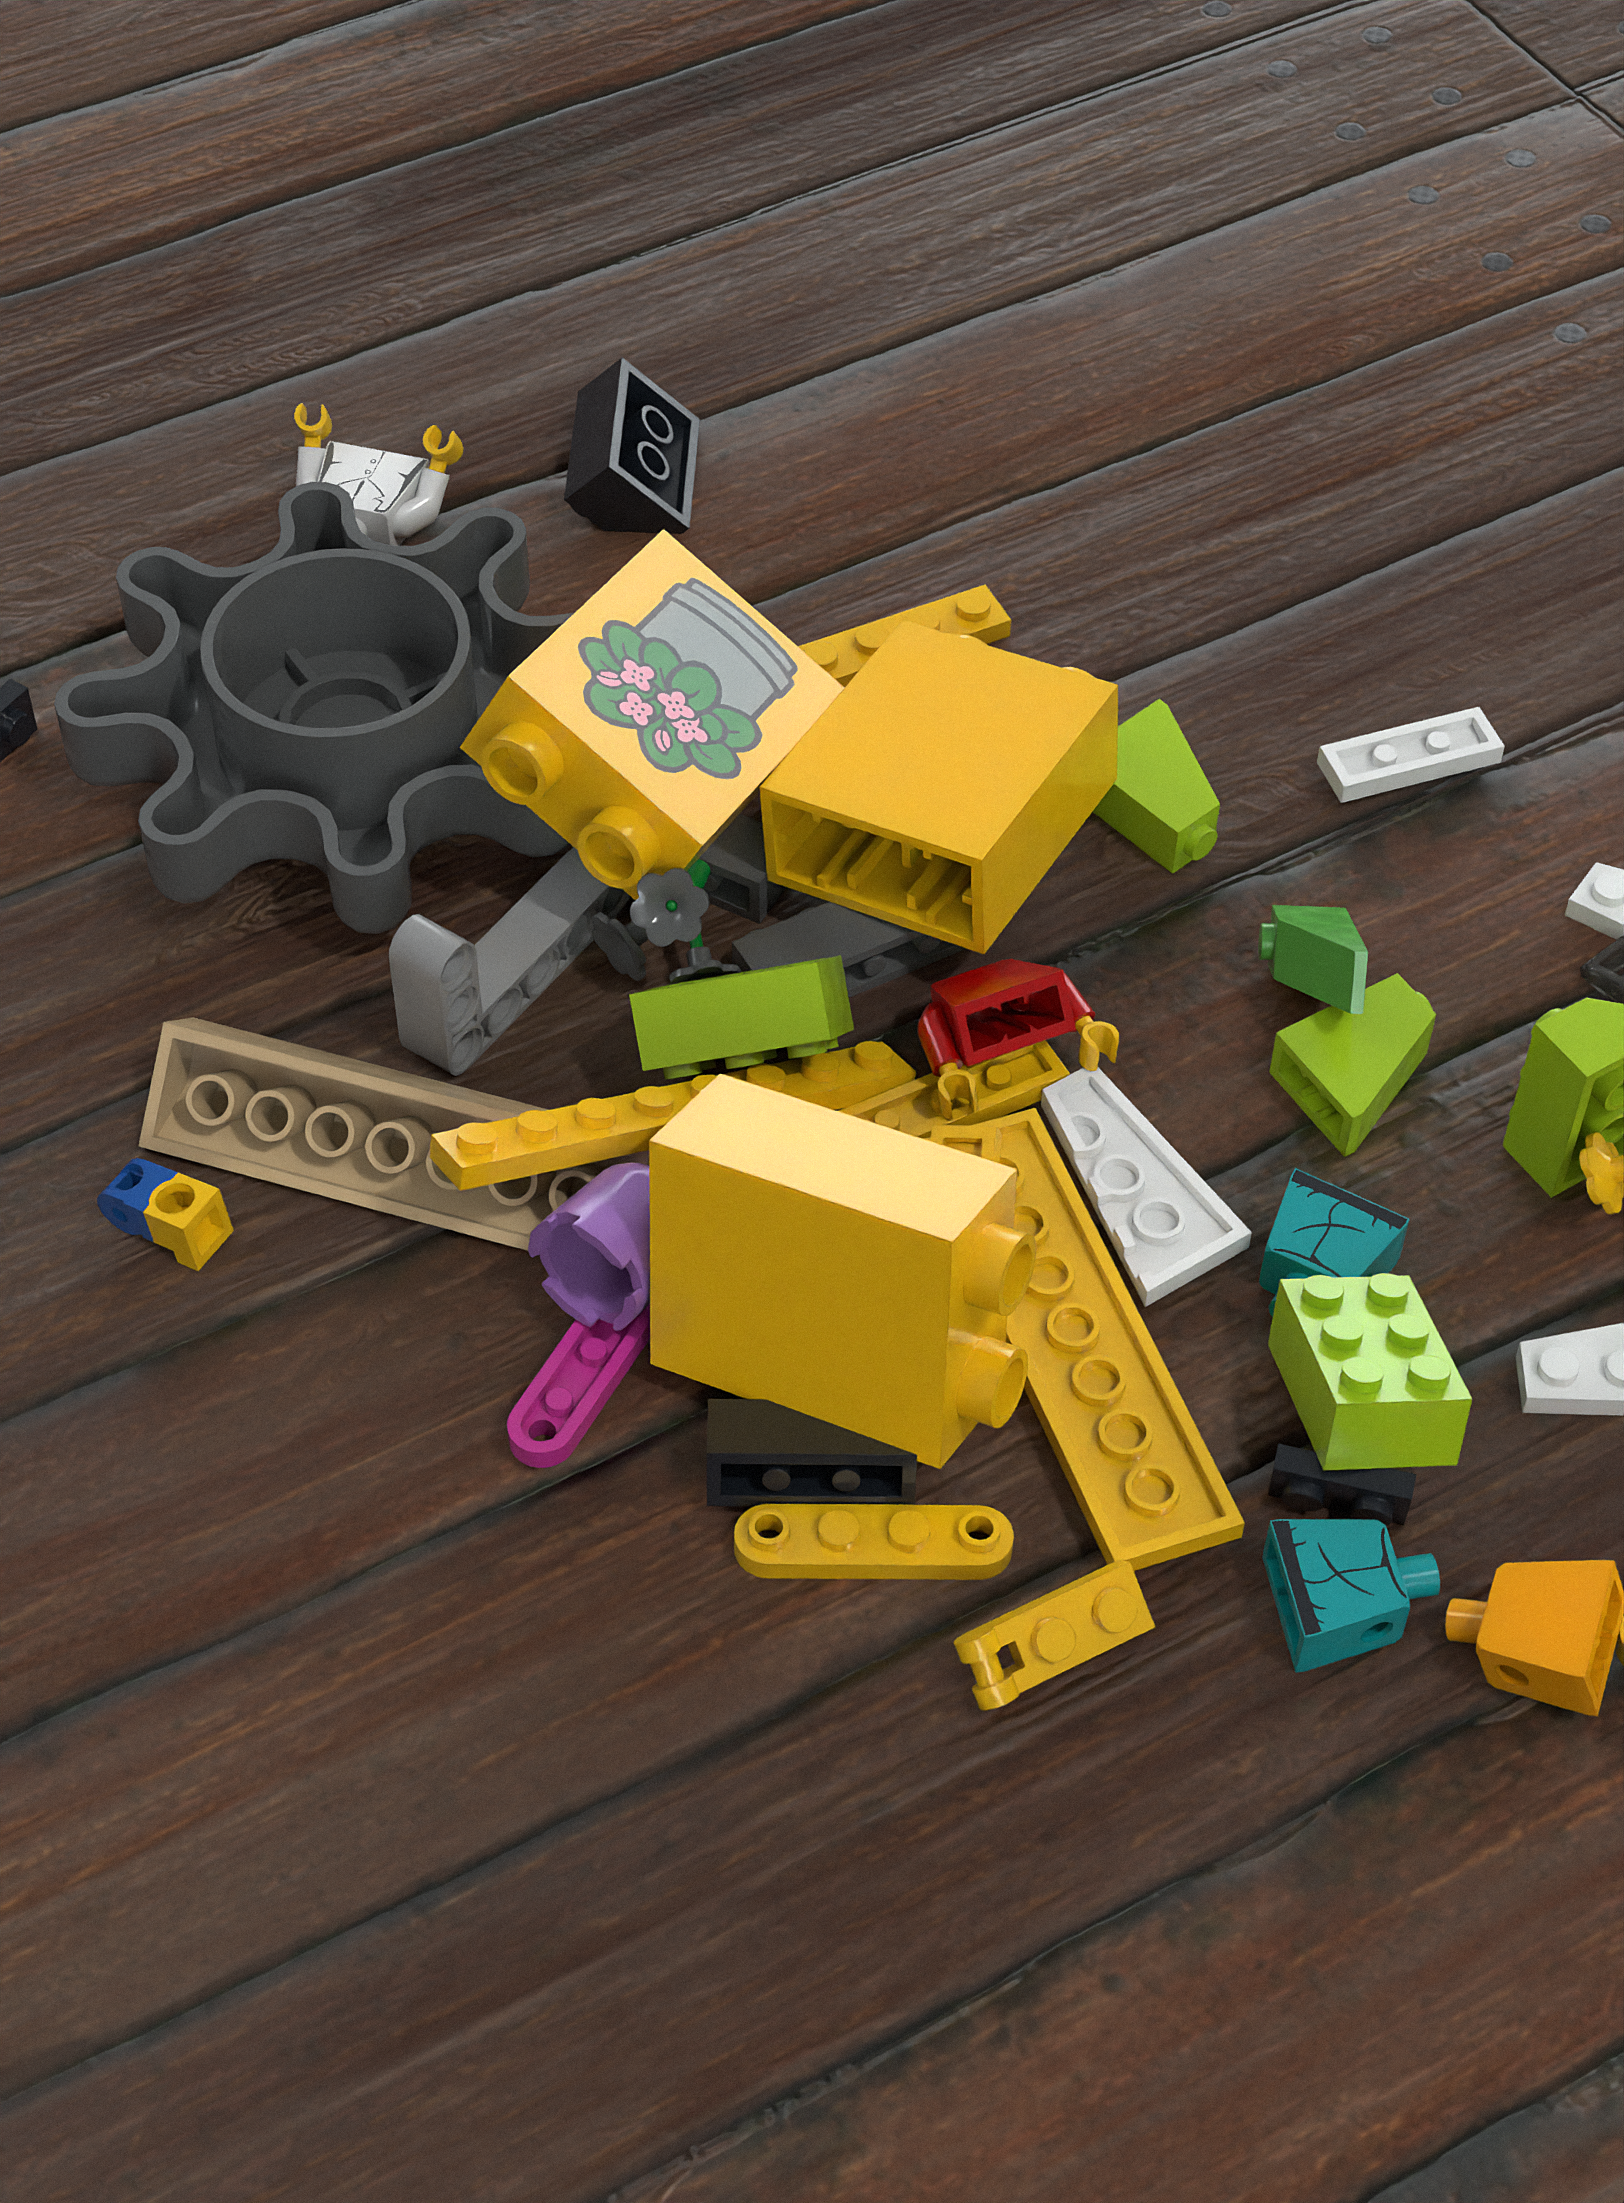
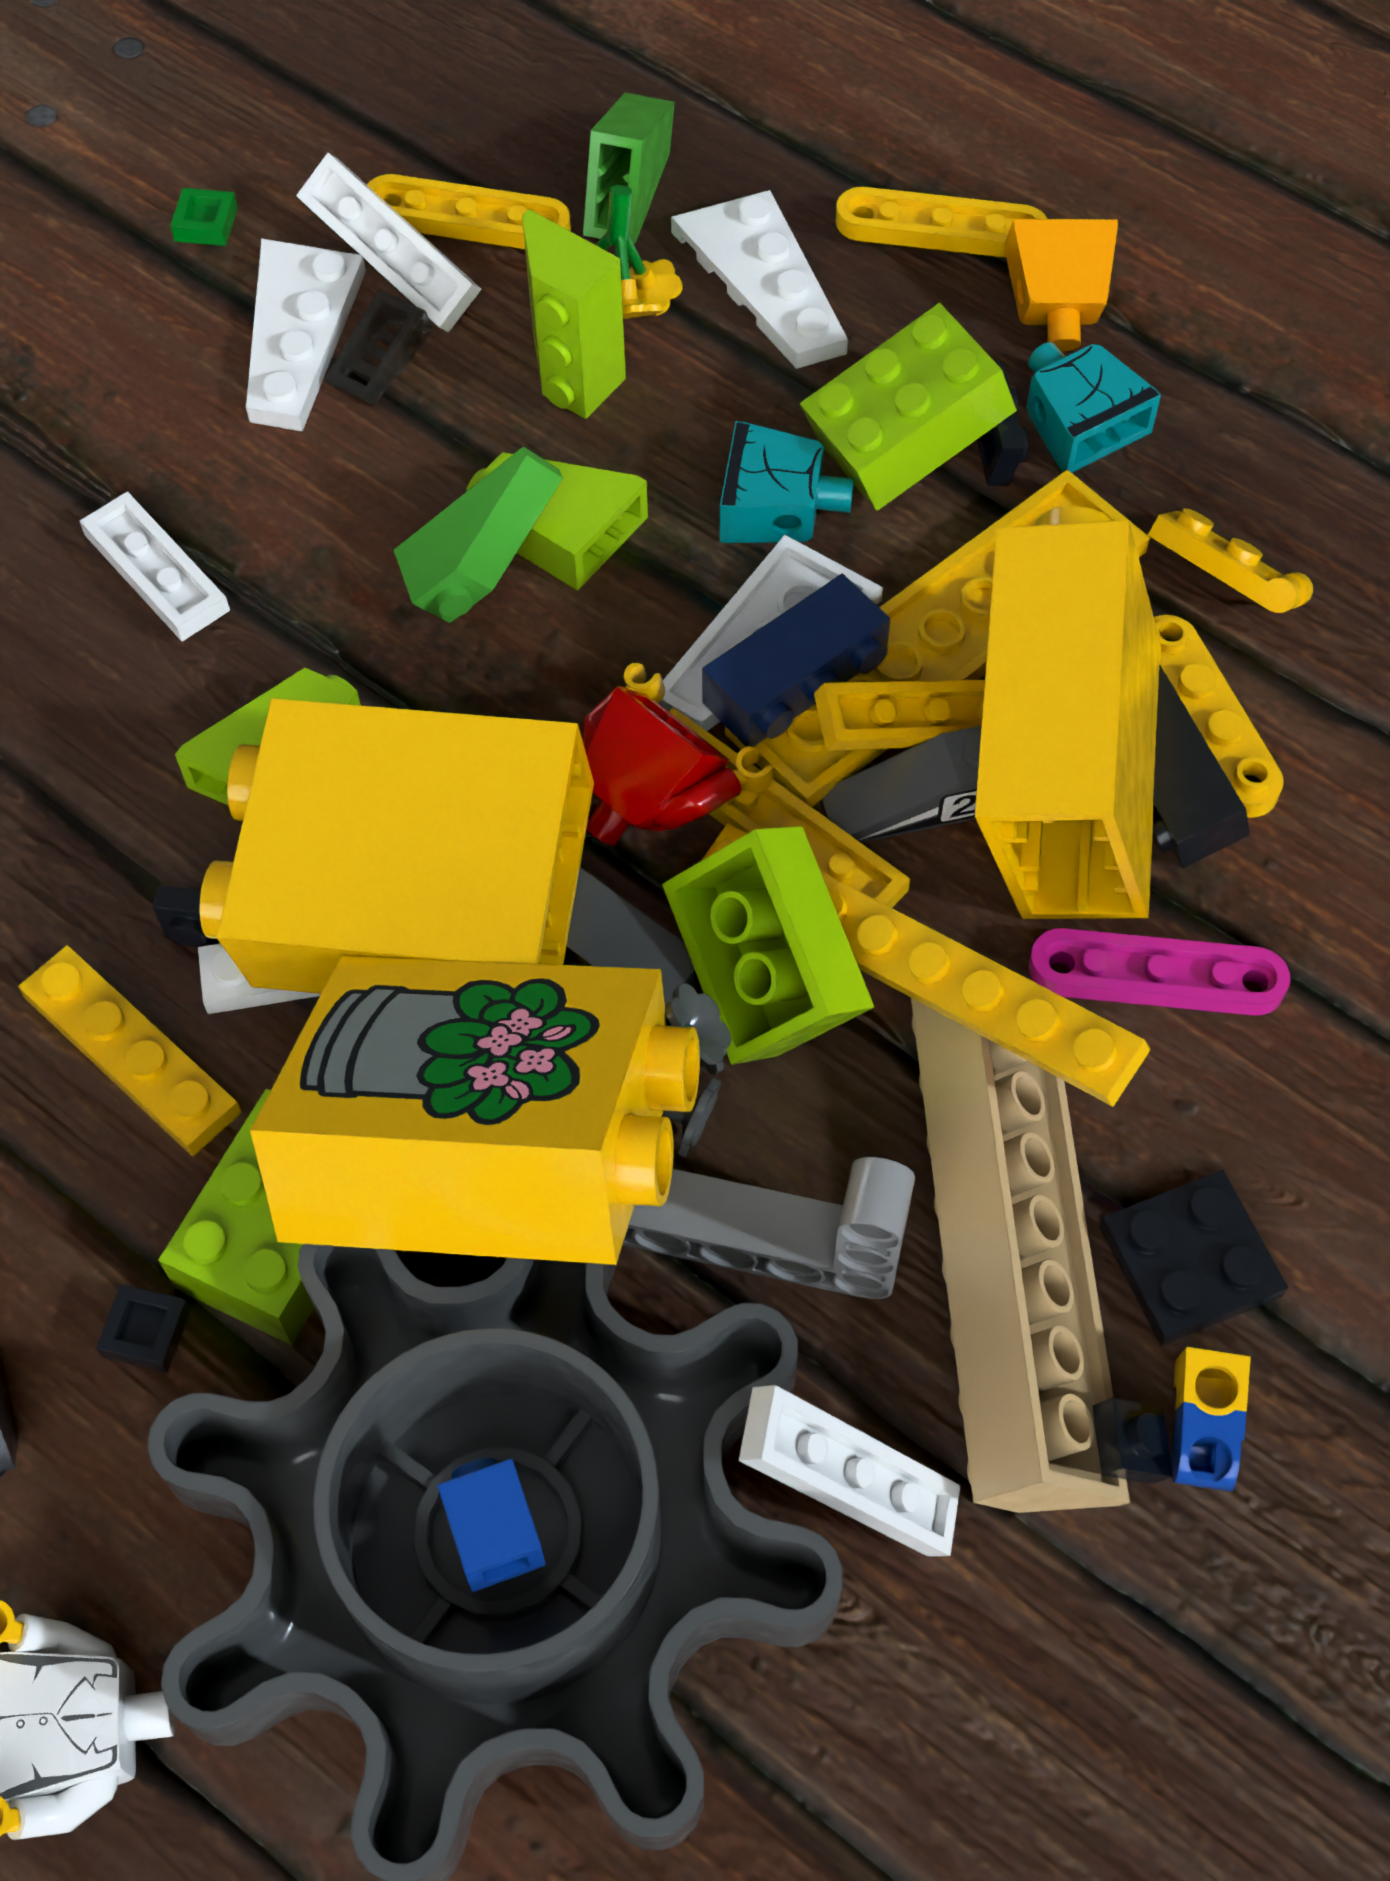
camera: 110 degrees left, 10 degrees up
(181, 1145) = (1132, 1441): none -> black plate
(245, 905) = (849, 1471): none -> white plate
(311, 1274) = (1192, 1257): none -> black plate
(315, 643) = (491, 1522): none -> blue brick
(600, 1248) = (1080, 941): medium lavender cylinder -> none
(1063, 1160) = (779, 667): none -> dark blue brick

